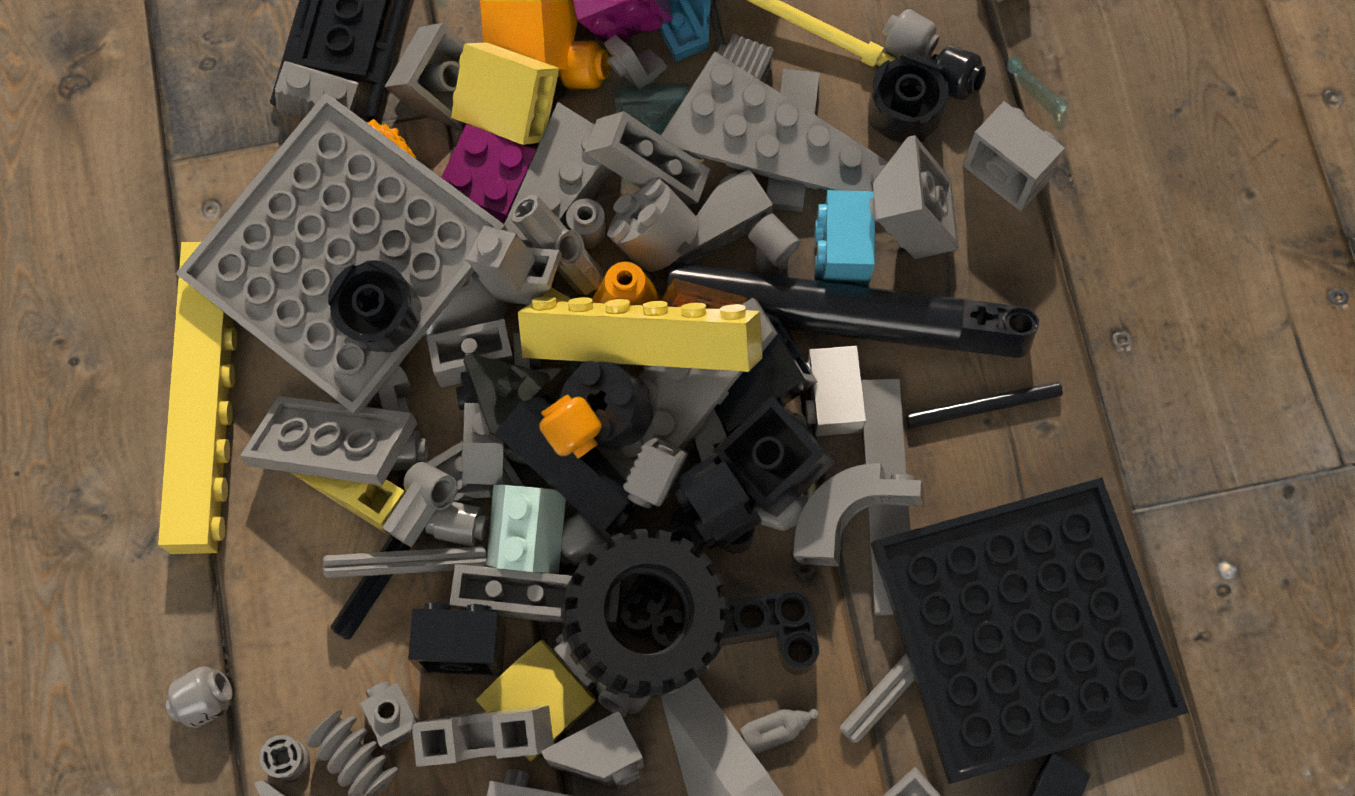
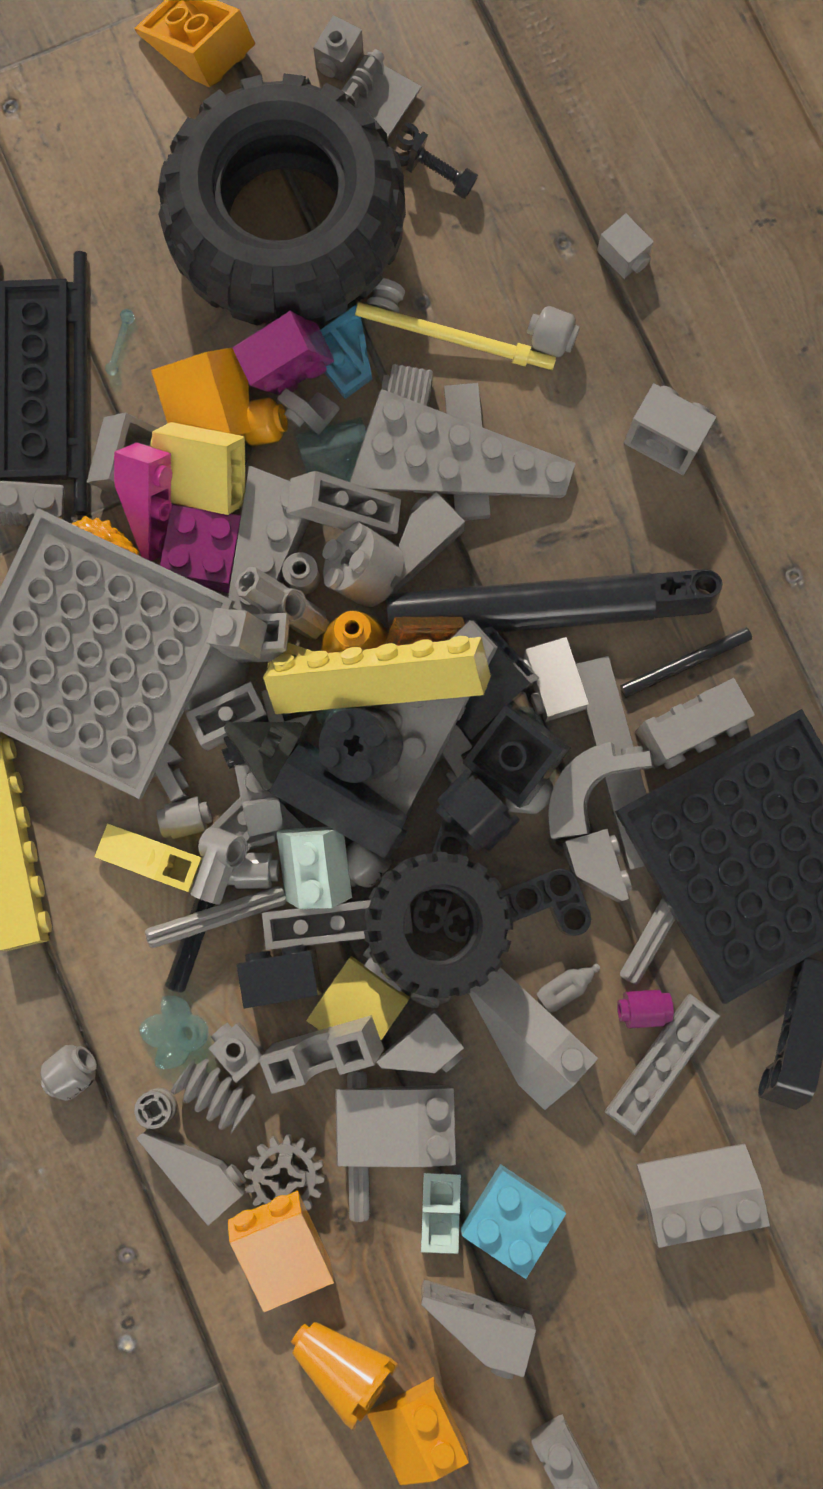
camera: 10 degrees left, 10 degrees up
(321, 680) = (168, 1033): none -> clear light blue plate
(329, 440) = (122, 827): light grey plate -> none
(377, 284) = (122, 720): black brick -> none
(441, 106) = (144, 490): none -> dark pink slope
(570, 426) = (336, 776): light orange head -> none
(654, 472) = (418, 797): light grey brick -> none
(773, 245) = (473, 560): light grey piece -> none
(836, 598) = (595, 864): none -> light grey slope
(845, 238) = (537, 540): medium azure brick -> none
(860, 771) = (645, 1009): none -> magenta brick
(907, 98) = (566, 373): black brick -> none
(916, 202) = (593, 494): light grey slope -> none
(961, 70) = (601, 357): black head -> none
(979, 469) = (695, 724): none -> light grey wedge
(1015, 66) = (651, 337): clear light blue hinge -> none

